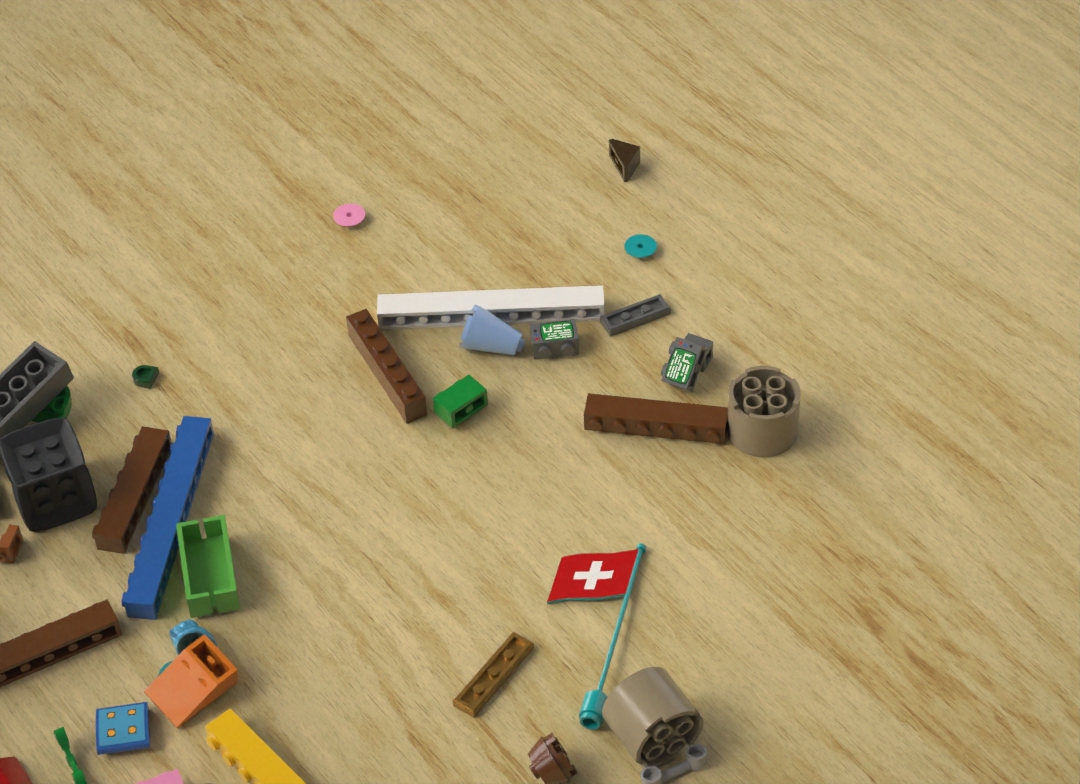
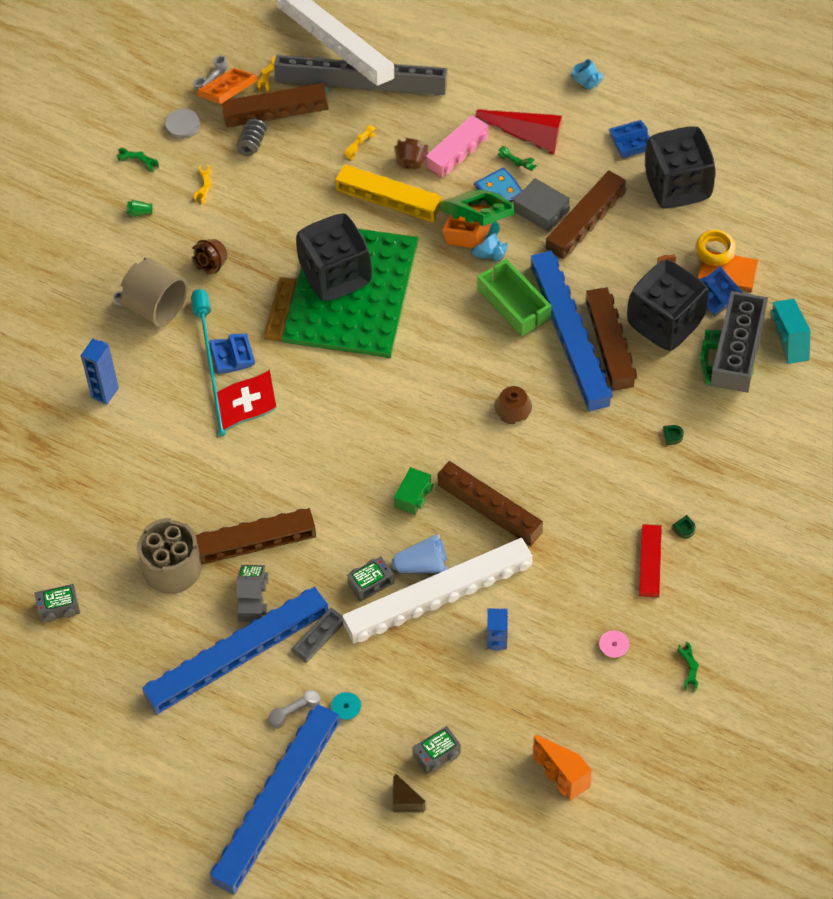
camera: 155 degrees right, 10 degrees up
(87, 680) = (541, 204): none -> dark grey brick
(186, 710) = (459, 207): none -> green slope
(204, 289) = (684, 527): none -> dark green tile
(260, 272) = (650, 560): none -> red tile
(289, 177) = (688, 656): none -> green piece
(292, 456) = (513, 405): none -> reddish brown cone
(390, 669) = (362, 319): none -> green plate
(399, 658) = (334, 257): none -> black piece
(455, 245) = (497, 628): none -> blue brick
(466, 125) = (562, 766): none -> orange slope
(574, 183) = (436, 750): none -> brick
(583, 637) = (231, 353): none -> blue slope
(672, 261) = (277, 715): none -> light grey bar
(729, 320) = (235, 650): none -> blue brick
(745, 194) = (274, 799): none -> blue brick
(765, 620) = (99, 371): none -> blue brick
(906, 424) = (57, 603): none -> brick

